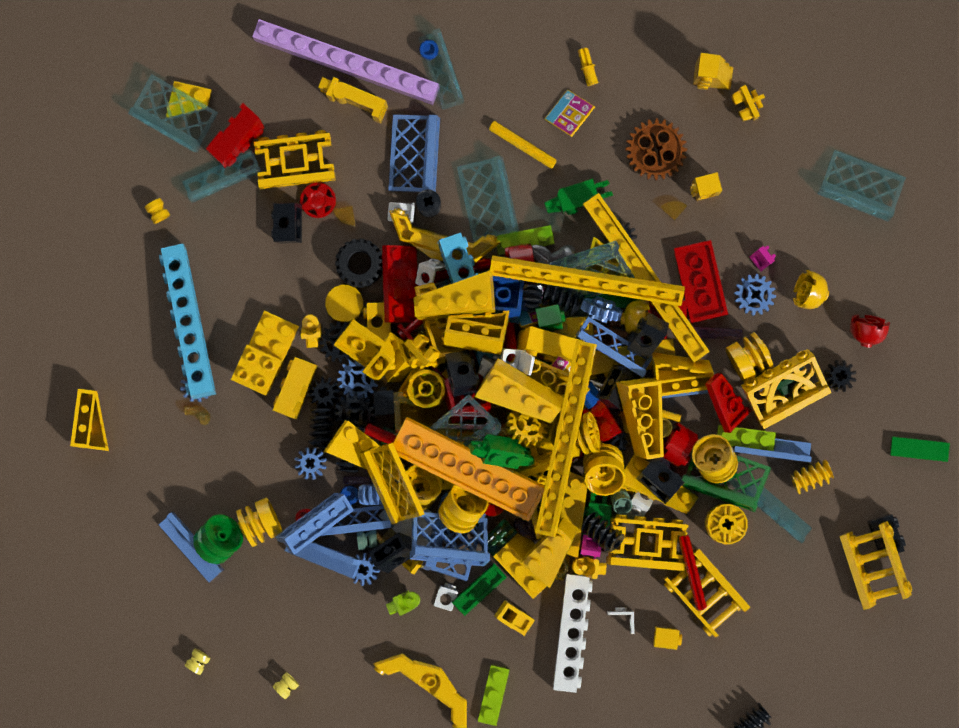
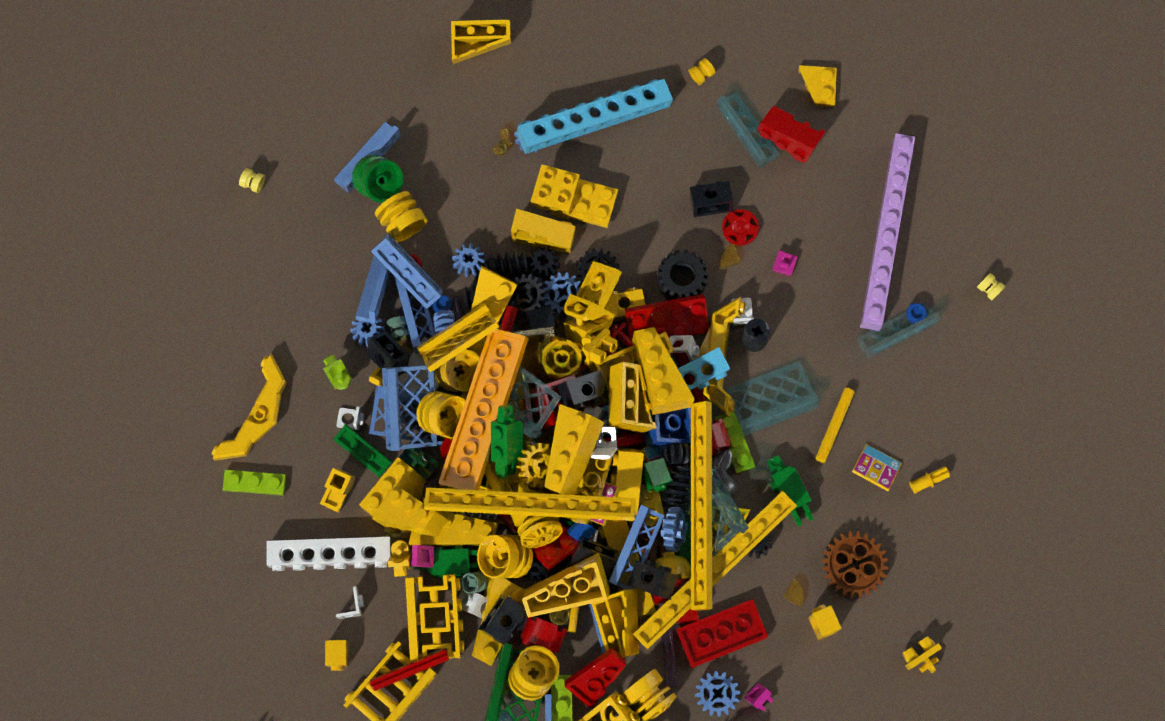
camera: 80 degrees right, 10 degrees down
(169, 129) = (786, 70): clear light blue fence -> none
(285, 685) = (238, 270): light yellow wheel -> none
(296, 176) = (762, 200): yellow fence -> none
(311, 330) = (604, 238): yellow hips -> none
(344, 303) = (638, 269): yellow tile -> none
(348, 94) = (855, 229): yellow hips -> none
(360, 164) = (784, 263): none -> dark pink tile
(430, 155) = (811, 331): medium blue fence -> none
(602, 534) = (437, 563): black piece -> none
(712, 72) = (948, 608): yellow wedge -> none
(716, 517) = (477, 703): yellow wheel -> none

